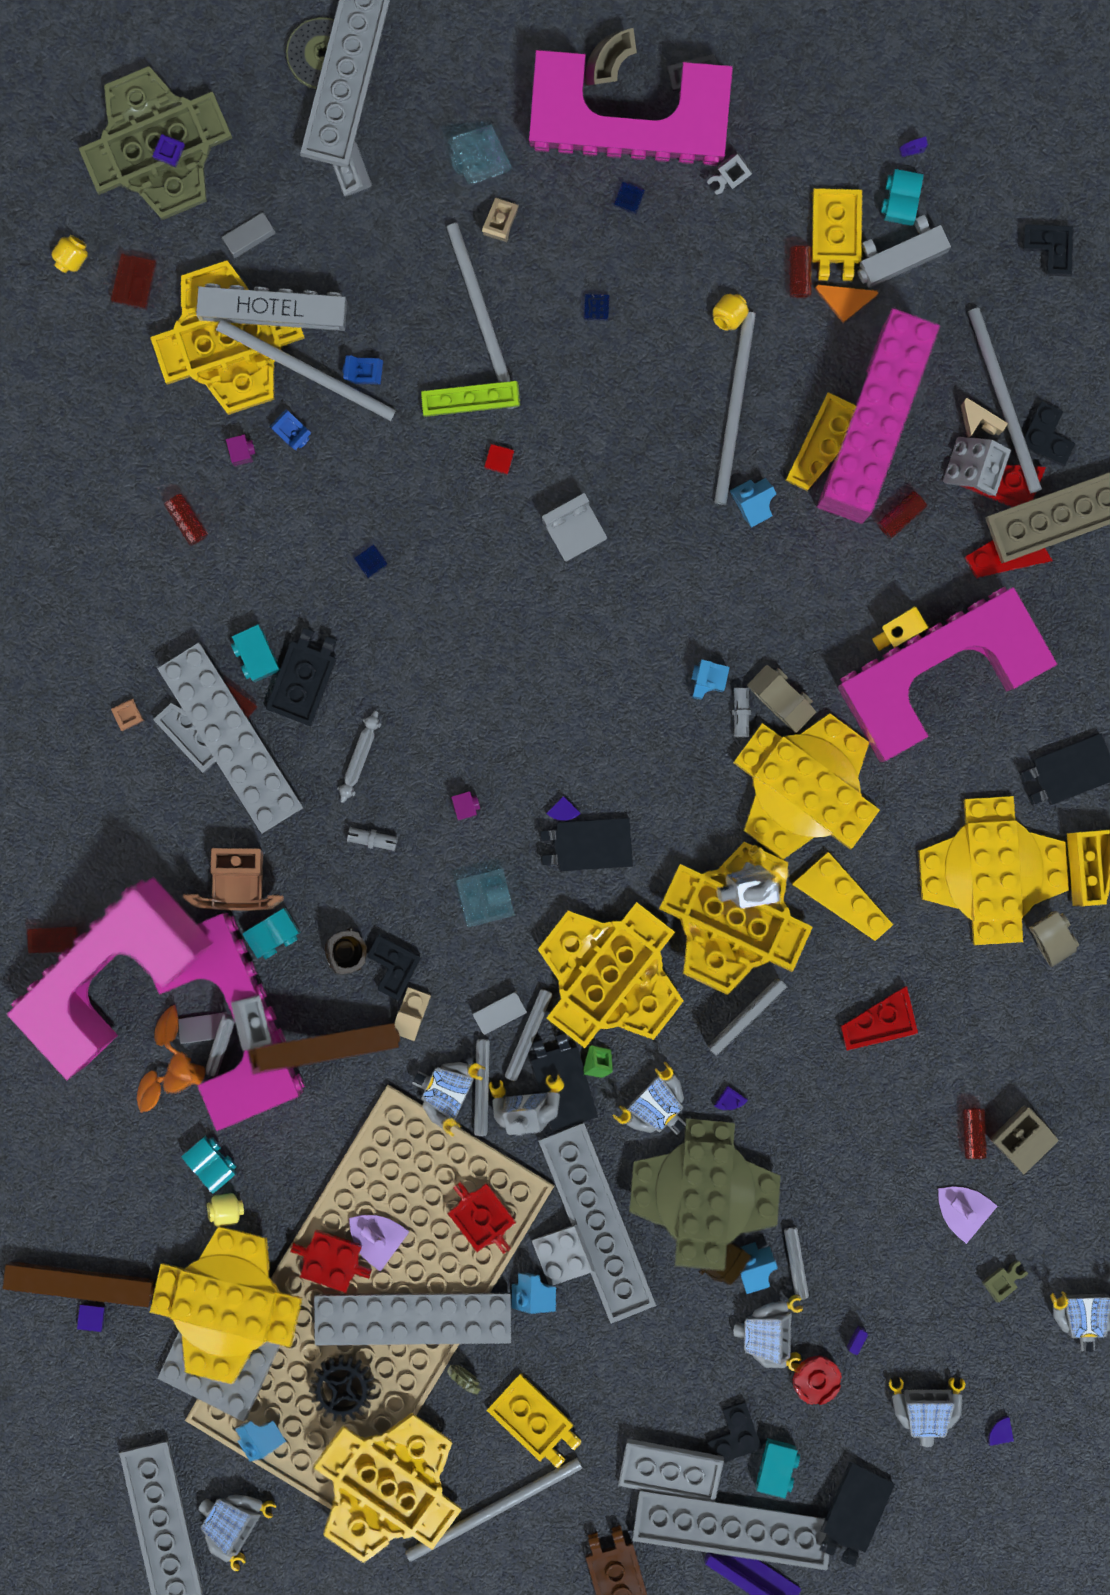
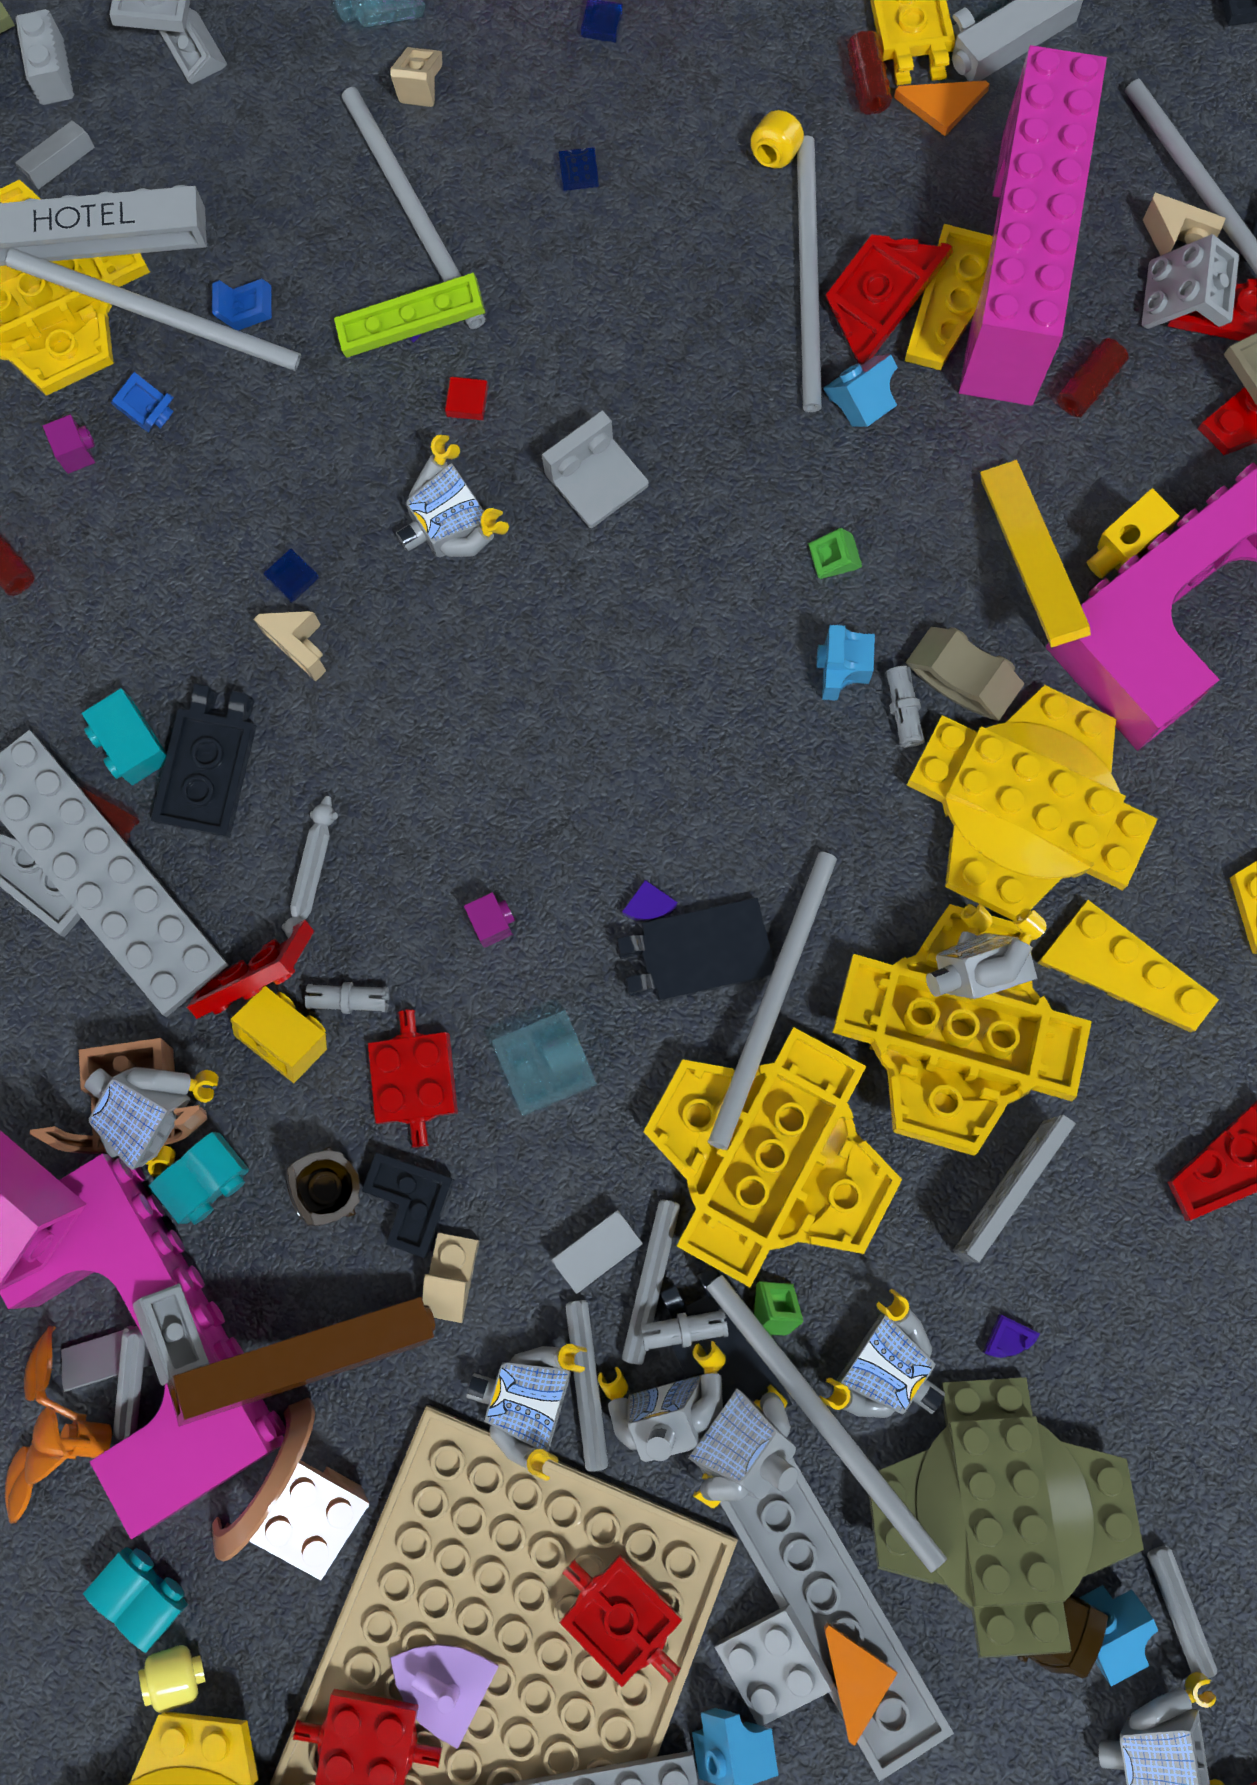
camera: 10 degrees left, 10 degrees down
(247, 891) = (138, 1112): none -> light grey torso
(250, 166) = (44, 57): none -> light grey brick
(309, 1130) = (298, 1509): none -> piece
(329, 815) = (271, 964): none -> red wing
(330, 855) = (280, 1033): none -> yellow brick
(364, 602) = (291, 635): none -> tan slope
(405, 893) = (412, 1078): none -> red plate
(476, 538) = (446, 510): none -> torso
(542, 1066) = (684, 1330): none -> light grey pin
(566, 1137) = (746, 1450): none -> light grey torso
(609, 1269) = (859, 1680): none -> orange tile
(613, 1128) = (827, 1425): none -> light grey piece
(628, 882) = (772, 1002): none -> light grey piece
(717, 604) = (835, 554): none -> bright green slope
(778, 432) = (881, 289): none -> red wing
(836, 632) = (1035, 554): none -> yellow tile

